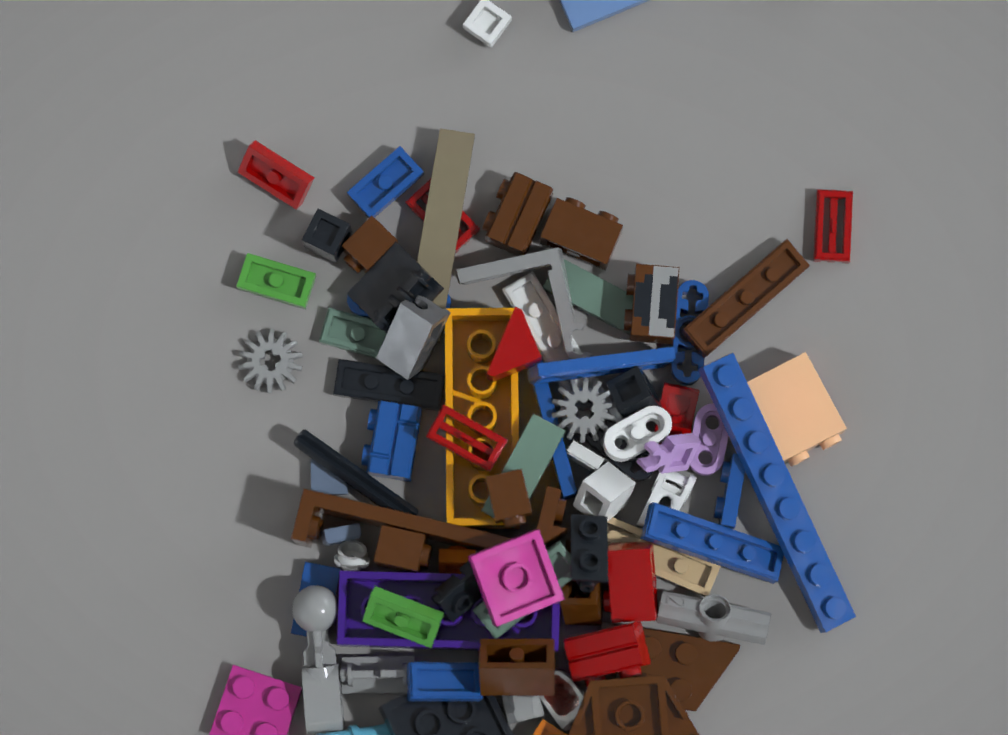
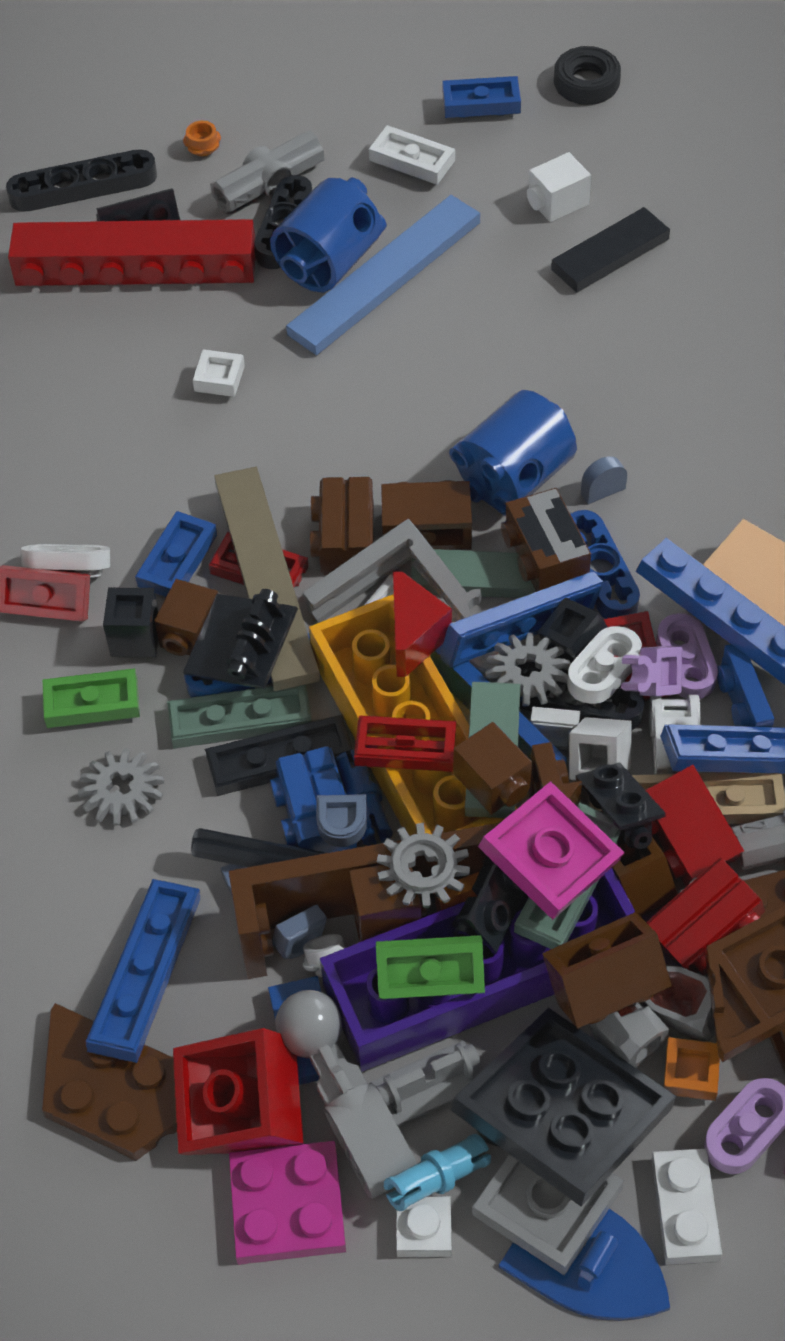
camera: 25 degrees left, 25 degrees down
(182, 584) = (106, 1097): none -> reddish brown wing
(230, 513) = (143, 971): none -> blue tile
(251, 633) = (237, 1094): none -> red slope
(304, 149) = (55, 557): none -> white plate
(401, 470) = (341, 818): none -> sand blue tile
(412, 336) = (284, 669): flat silver hinge -> none
(428, 452) = (359, 782): none -> blue pin
(443, 537) = (433, 849): none -> light grey gear
(443, 681) = (520, 1039): blue tile -> none
(671, 212) = (515, 449): none -> blue cylinder
(729, 259) = (603, 479): none -> sand blue tile
(745, 298) = (642, 507): reddish brown tile -> none
(832, 256) = (706, 438): red tile -> none
(854, 32) = (610, 249): none -> black tile

